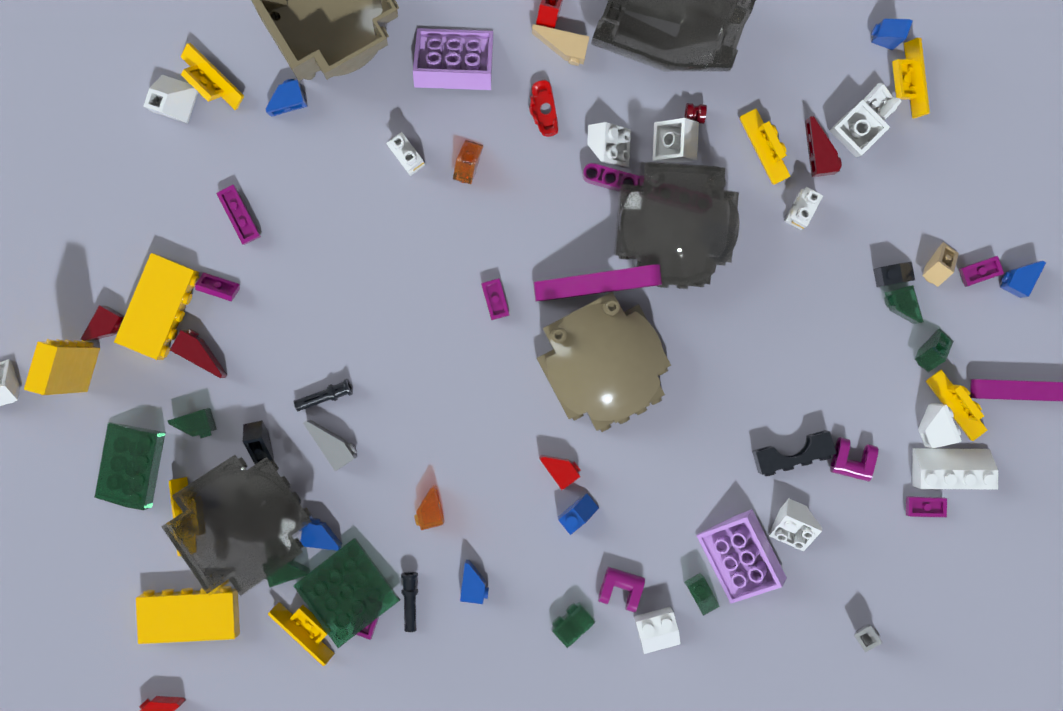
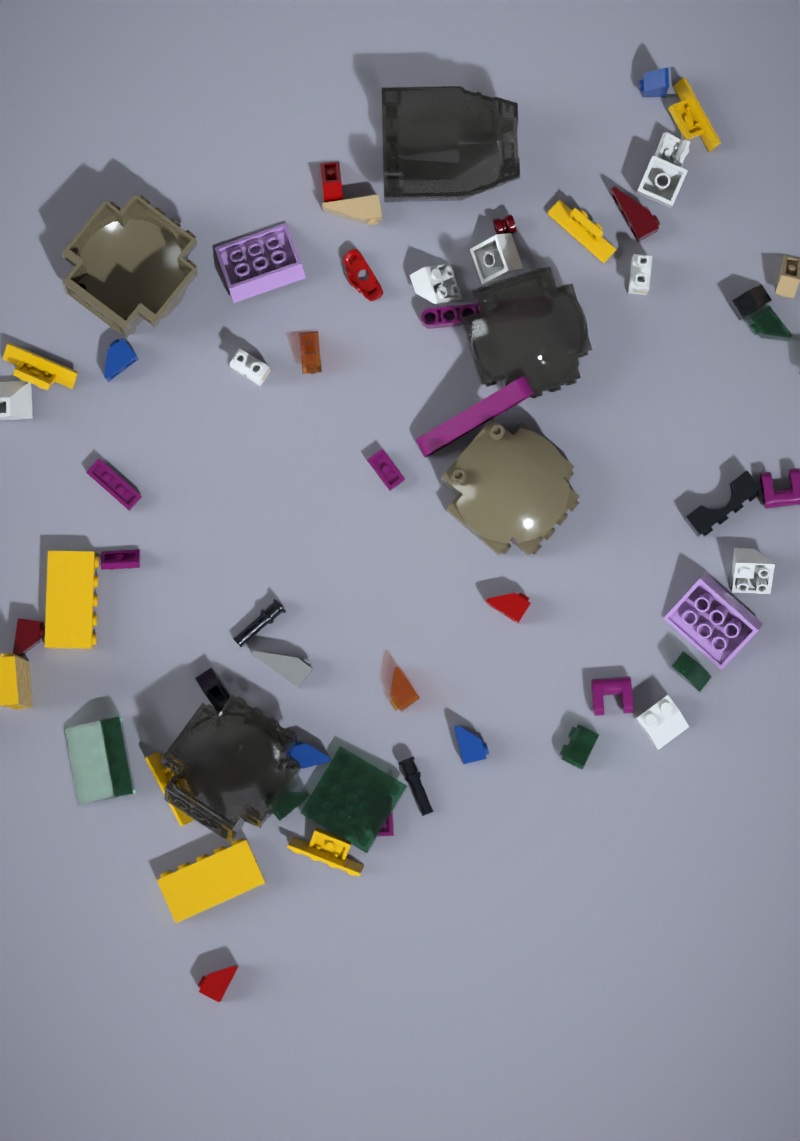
camera: 20 degrees left, 5 degrees down
(196, 351) = (119, 626): dark red slope -> none
(196, 423) = (148, 695): clear green slope -> none
(578, 514) = (543, 640): blue slope -> none

